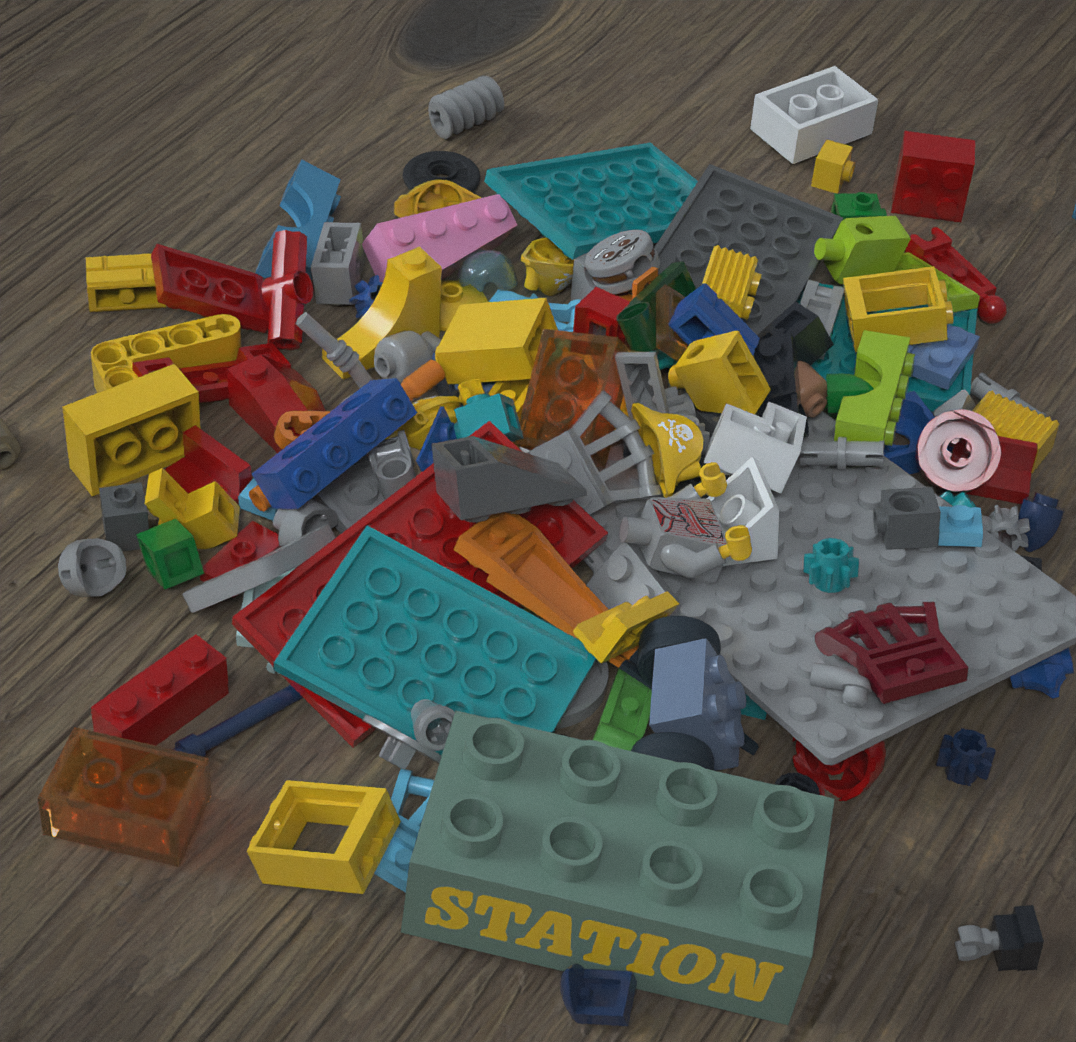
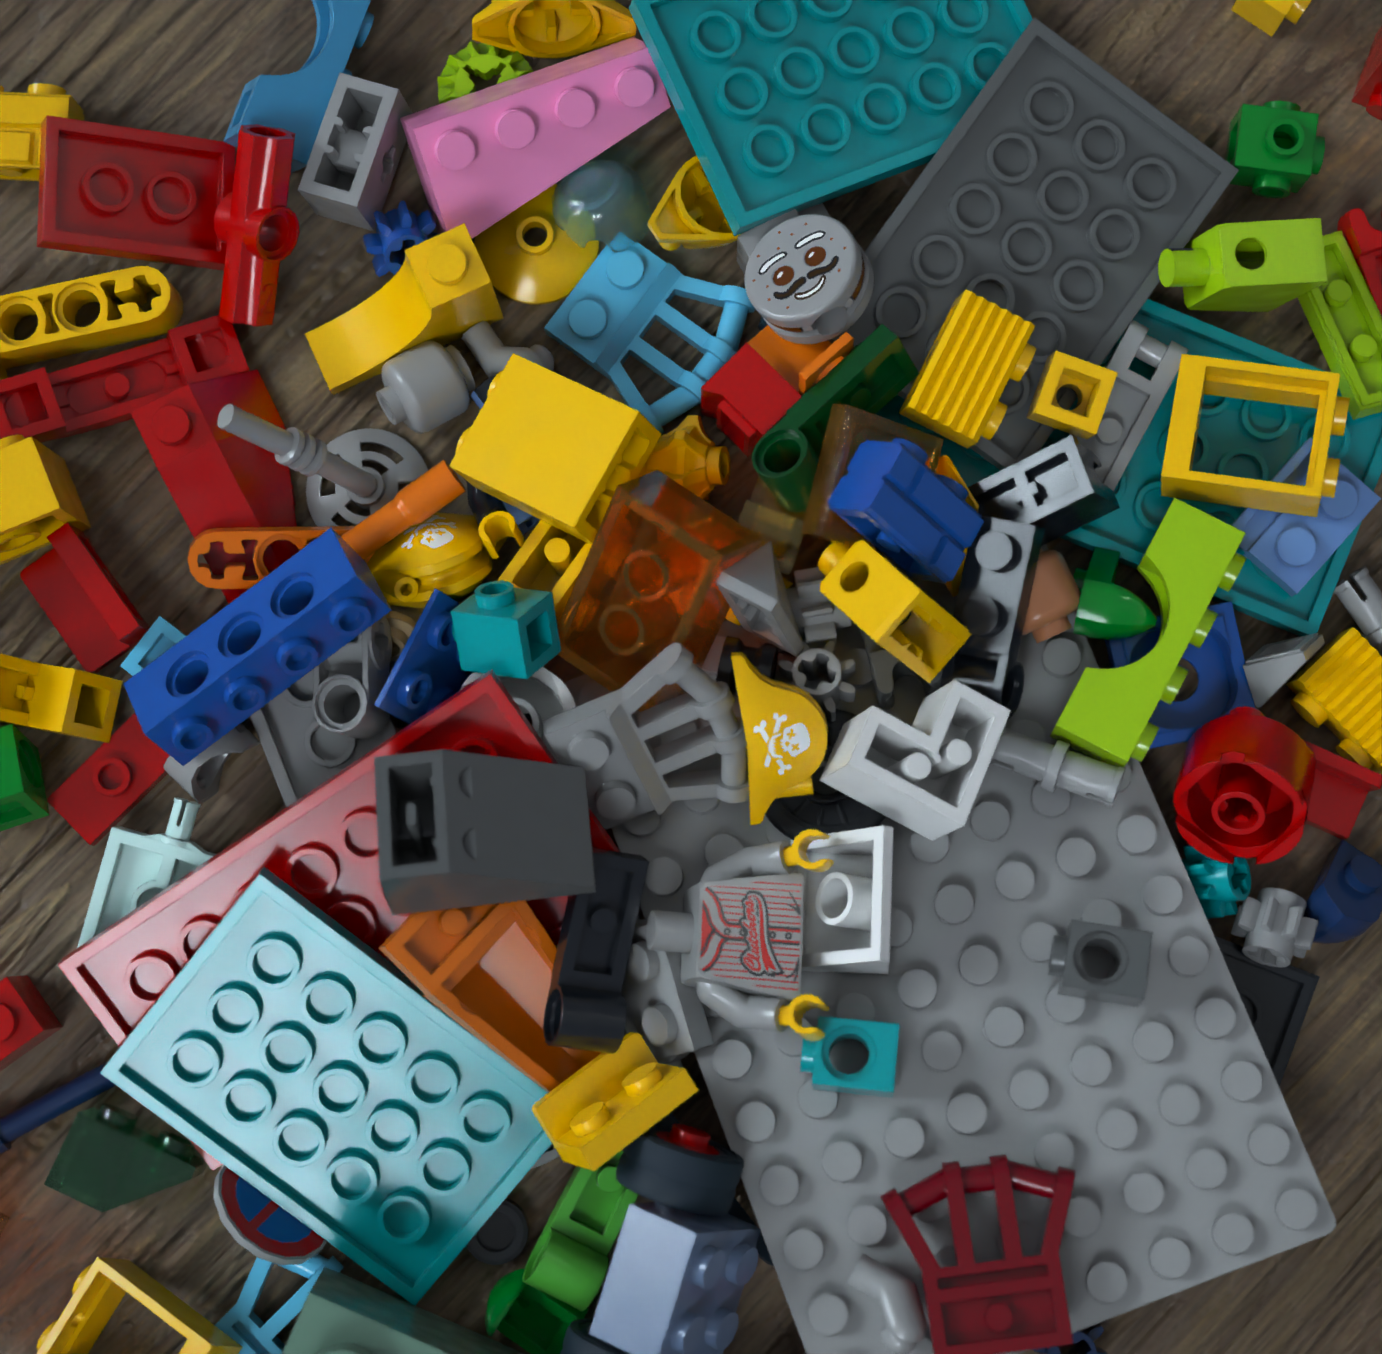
camera: 20 degrees right, 40 degrees up
(258, 571) = (127, 880): light grey beam -> none
(290, 744) = (115, 1163): none -> clear green slope
(431, 724) = (301, 1232): light grey cone -> none
(590, 553) = (592, 957): none -> black plate
(772, 579) = (875, 1078): none -> teal brick
(786, 288) = (1090, 383): none -> yellow plate
(831, 565) = (958, 1029): teal gear -> none
(960, 526) = (1182, 981): medium azure plate -> none

